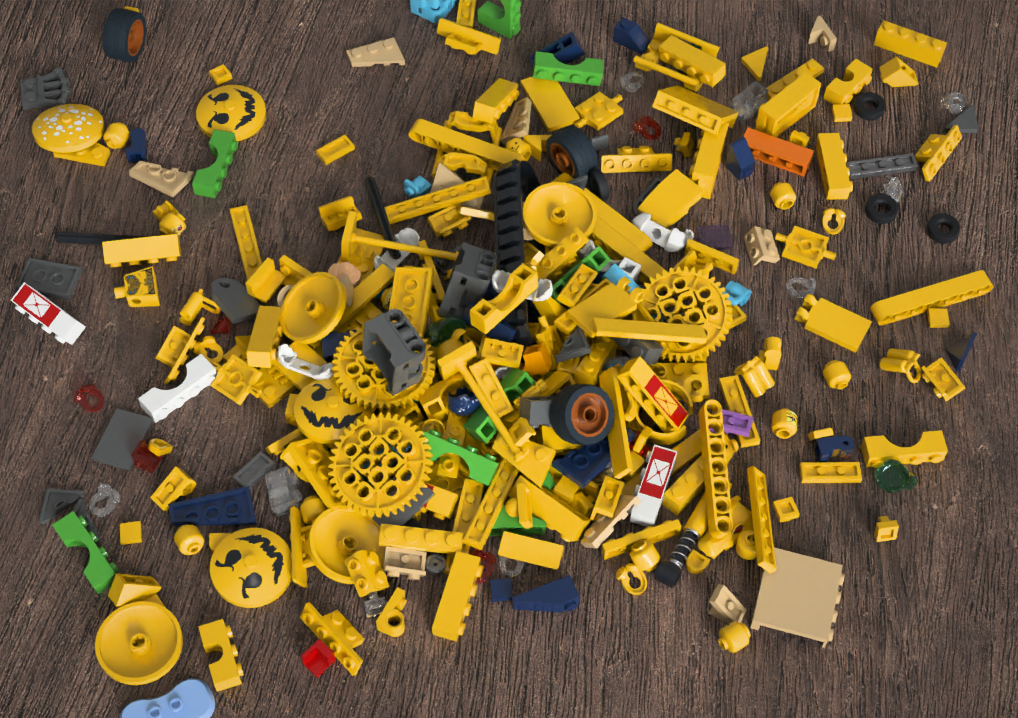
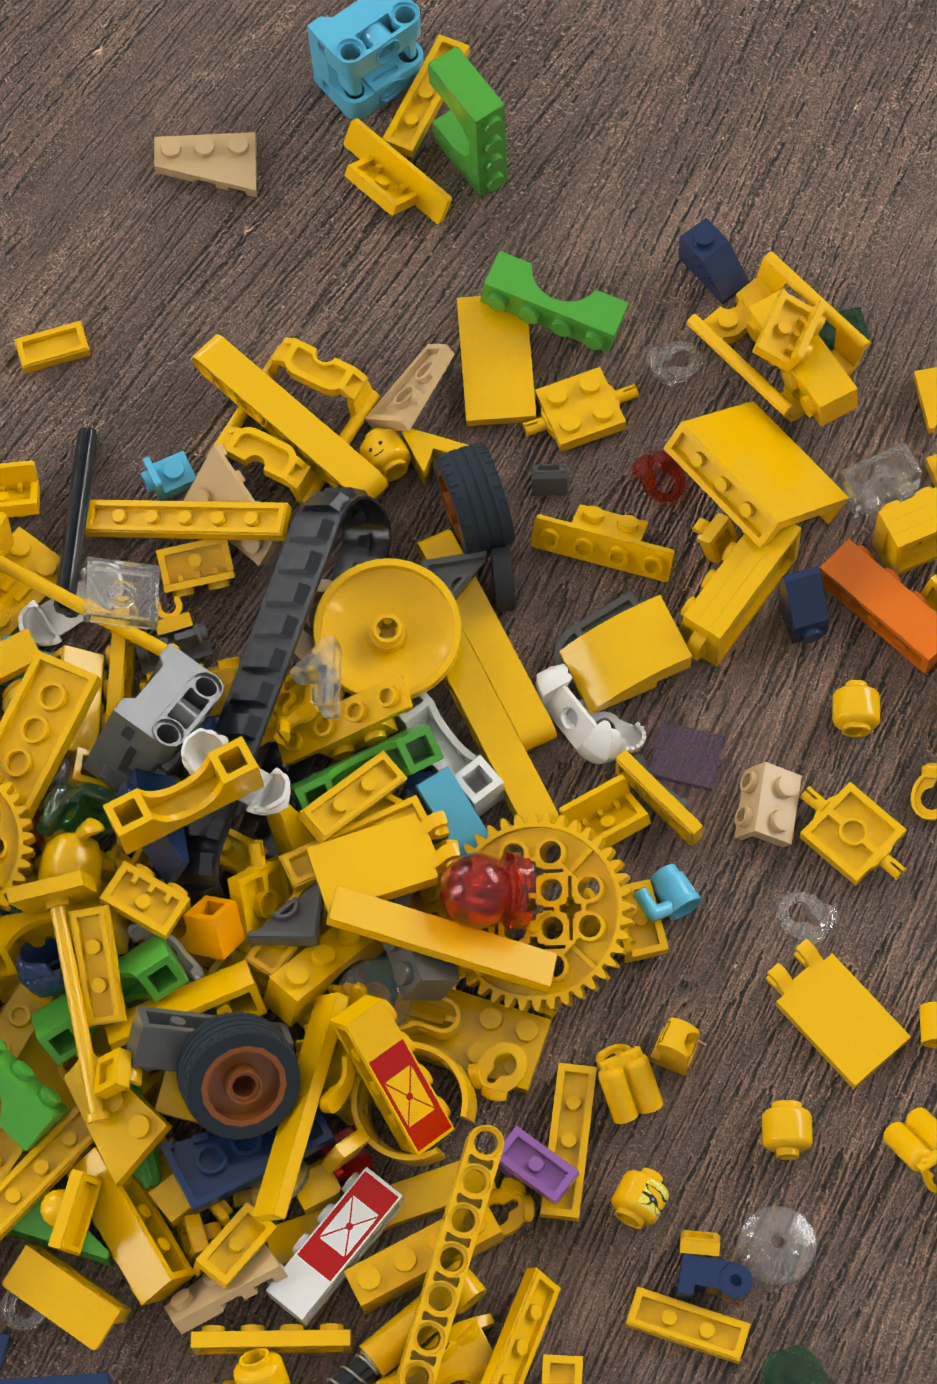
camera: 25 degrees right, 10 degrees up
(422, 236) = (121, 593): none -> clear tile
(450, 244) = (174, 620): none -> yellow tile
(476, 212) = (243, 566): yellow tile -> none
(495, 100) = (379, 337): yellow brick -> none
(533, 391) = (171, 996): yellow axle -> none
(539, 236) = (322, 670): none -> clear slope
(564, 49) = (563, 256): dark blue slope -> none
(664, 302) = (485, 890): none -> clear red tile
(685, 47) = (789, 331): none -> yellow bracket
(845, 427) = (774, 1264): none -> clear dish
(929, 448) = (798, 1320): yellow arch -> none

